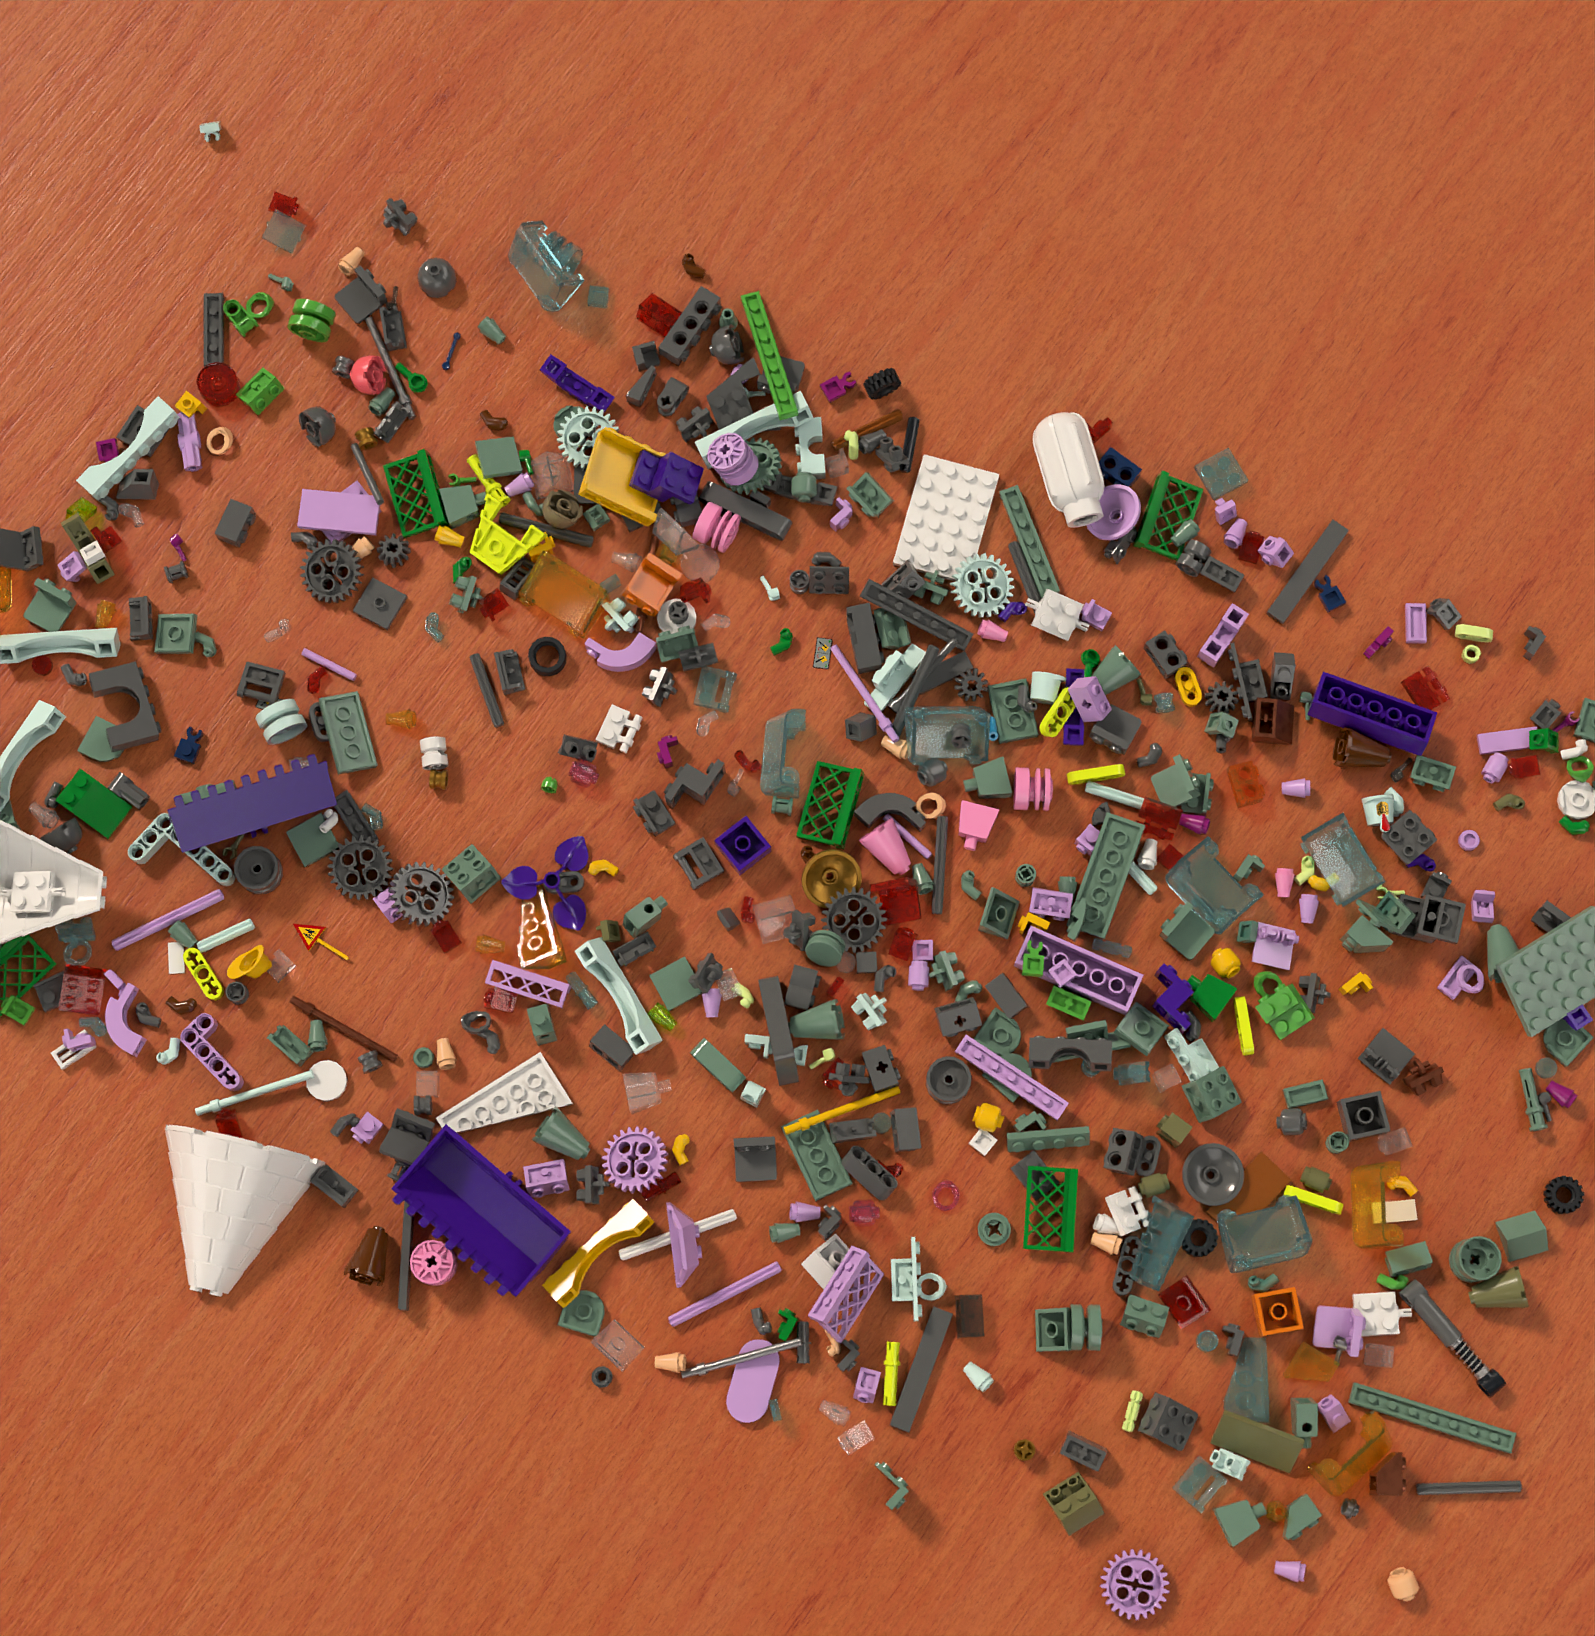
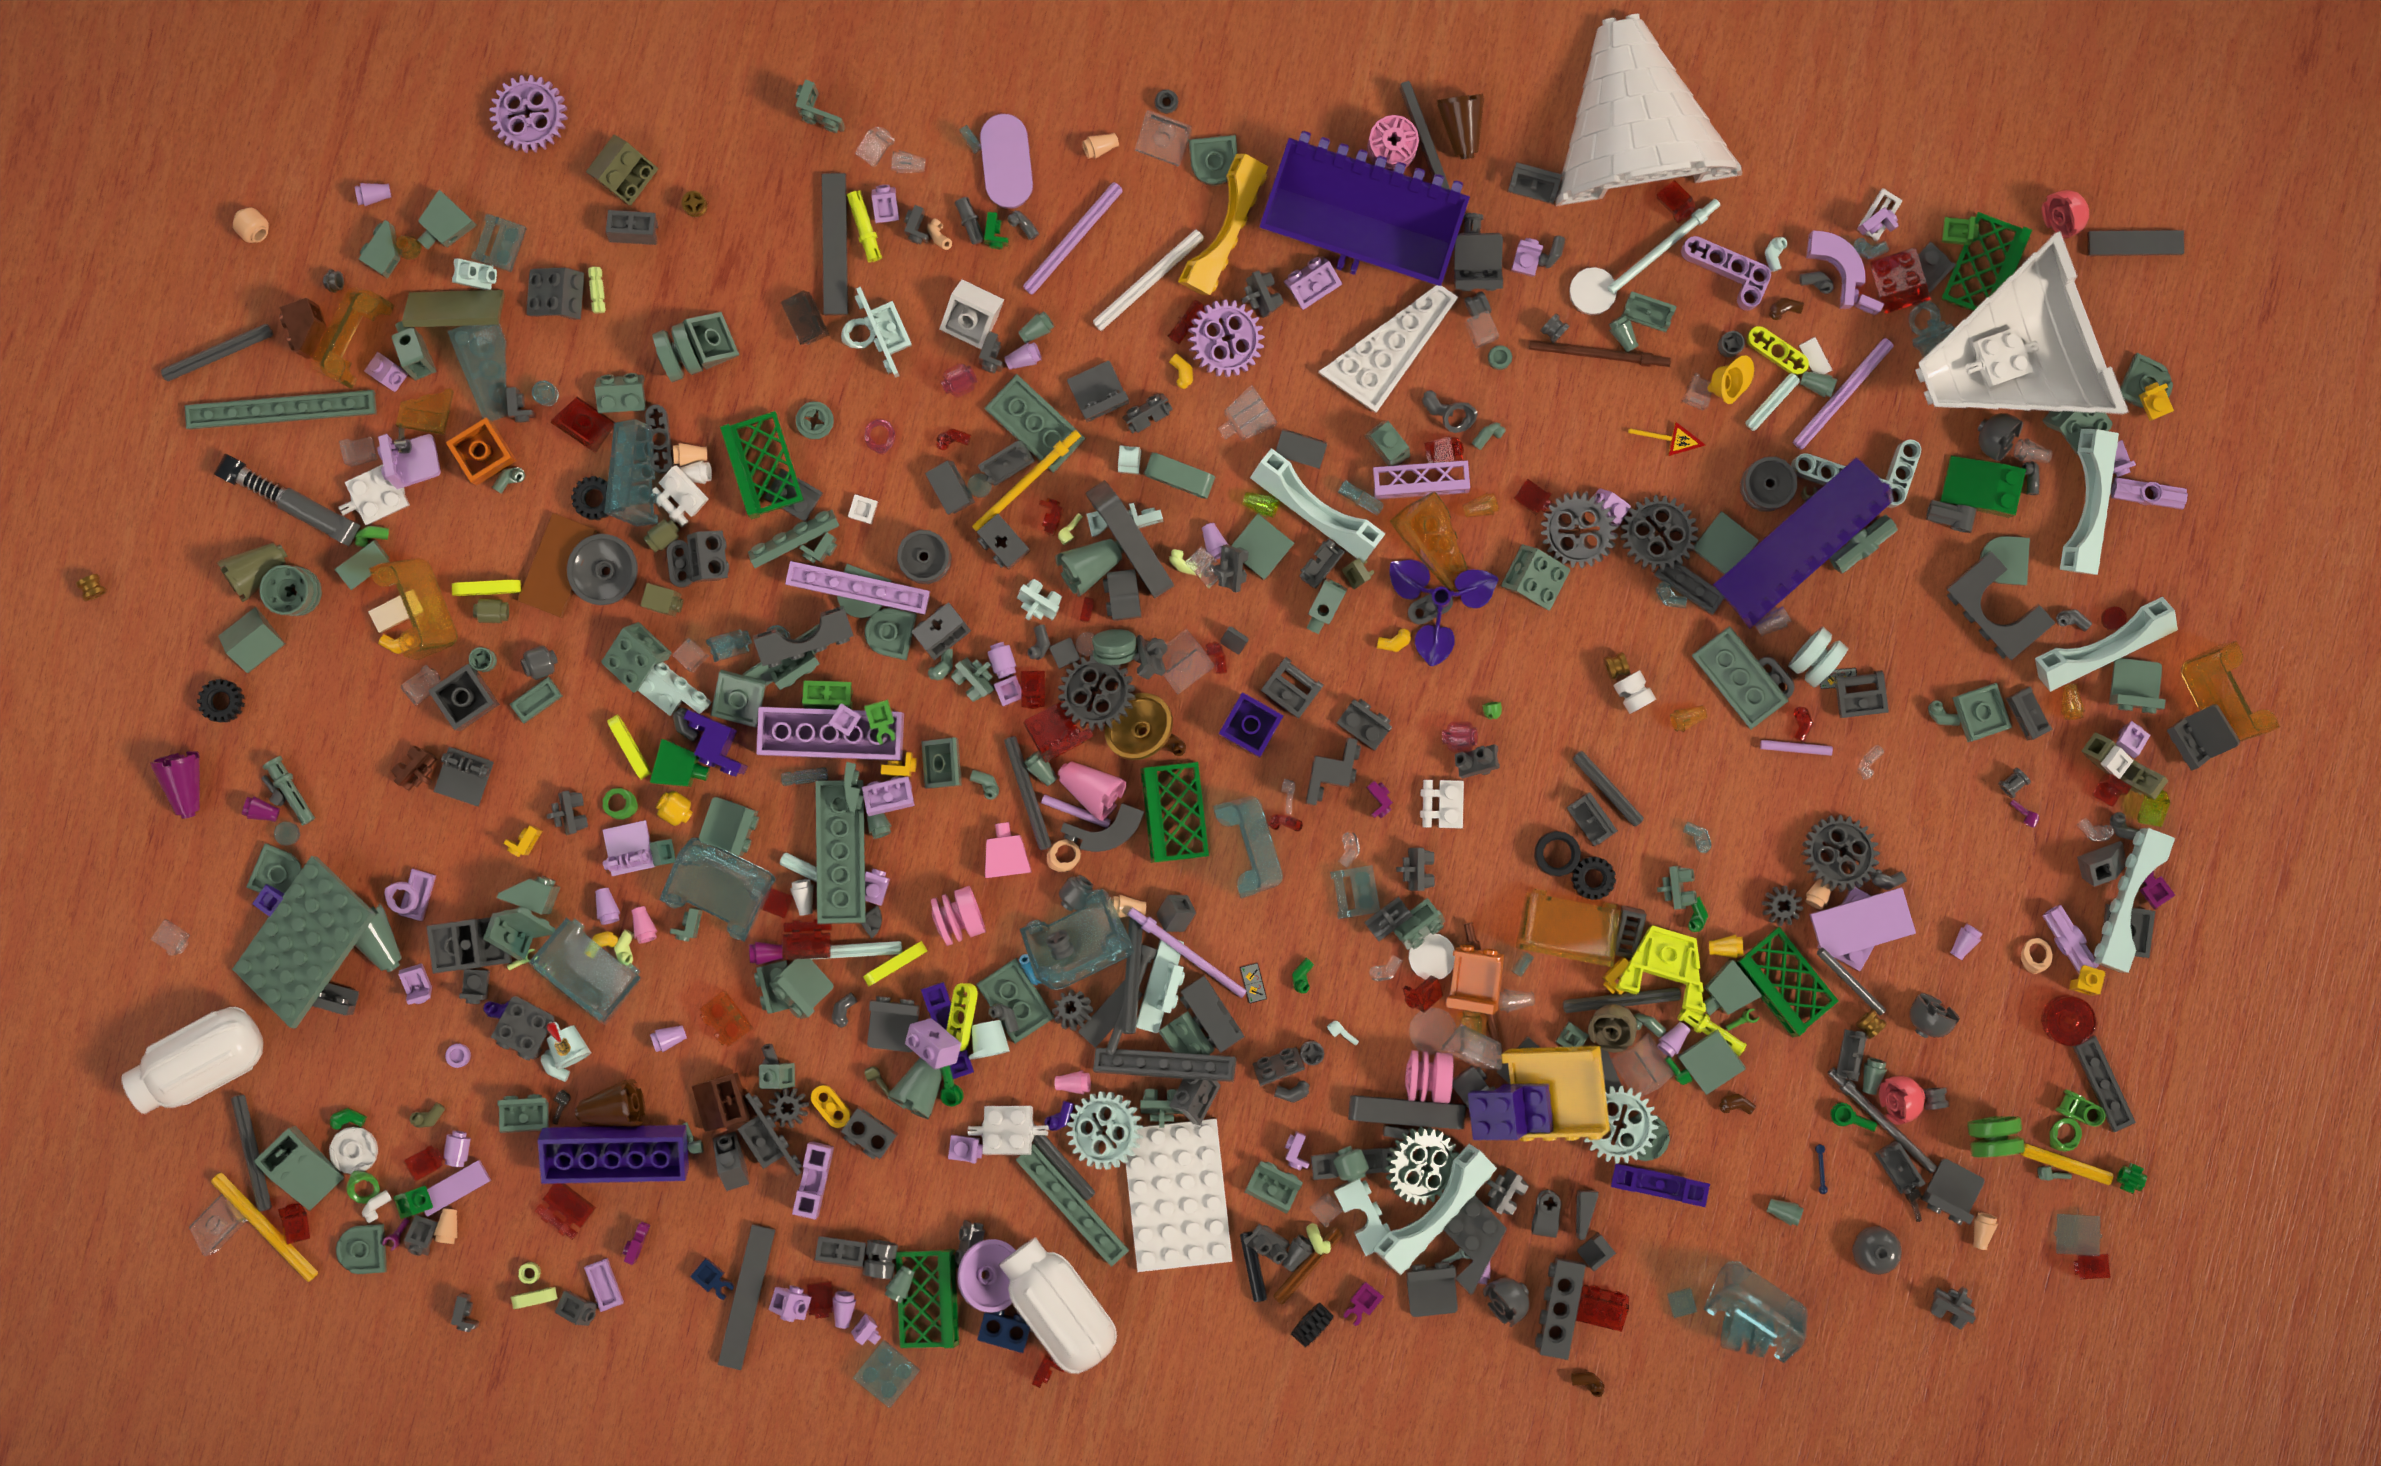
camera: 155 degrees right, 10 degrees up
(189, 749) = (1908, 589): dark blue plate -> none
(209, 128) = (2221, 1327): light aqua tile -> none
(225, 255) = (2131, 1178): none -> green gear
(235, 523) = (1973, 865): dark grey brick -> none
(260, 391) = (2017, 1032): bright green bracket -> none
(267, 283) = (2068, 1164): none -> yellow axle
(267, 471) = (1966, 940): none -> lavender cone
(332, 819) = (1713, 570): white arm -> none
(380, 603) = (1770, 839): dark grey plate -> none
(445, 1055) = (1477, 369): light nougat cone -> none
(459, 1001) = (1485, 434): none -> sand green arm
(492, 604) = (1644, 887): clear red bracket -> none
(523, 616) = (1579, 878): none -> black tyre
(561, 1136) = (1315, 331): sand green cone -> none
(614, 609) = (1498, 927): light aqua hips -> none
(622, 660) = (1462, 890): lavender arch -> none
(678, 608) = (1432, 964): dark grey wheel -> none
(683, 1243) = (1137, 270): lavender wedge -> none
(703, 1368) = (1063, 152): flat silver bar -> none
(714, 1129) = (1139, 415): none -> dark grey hinge
(727, 318) = (1514, 1331): sand green cone -> none
(732, 459) = (1443, 1160): lavender wheel -> none
(769, 355) = (1454, 1304): bright green tile -> none
(782, 805) = (1226, 788): sand green bush -> none
(839, 1289) = (950, 291): lavender fence -> none
(848, 1080) = (1031, 514): dark grey hips -> none
(869, 1172) = (970, 425): dark grey beam -> none
(979, 1377) = (771, 259): light aqua cone -> none
(988, 1117) = (866, 535): yellow head -> none
(990, 780) = (1009, 909): sand green torso -> none
(1006, 995) = (897, 676): dark grey hinge -> none
(1023, 878) = (928, 818): sand green wheel -> none
(1164, 702) = (850, 1076): clear light blue wheel -> none
(1264, 1235) = (524, 527): clear light blue windscreen -> none
(1284, 1010) = (590, 779): bright green plate -> none
(1523, 712) = (447, 1227): none -> light nougat cone

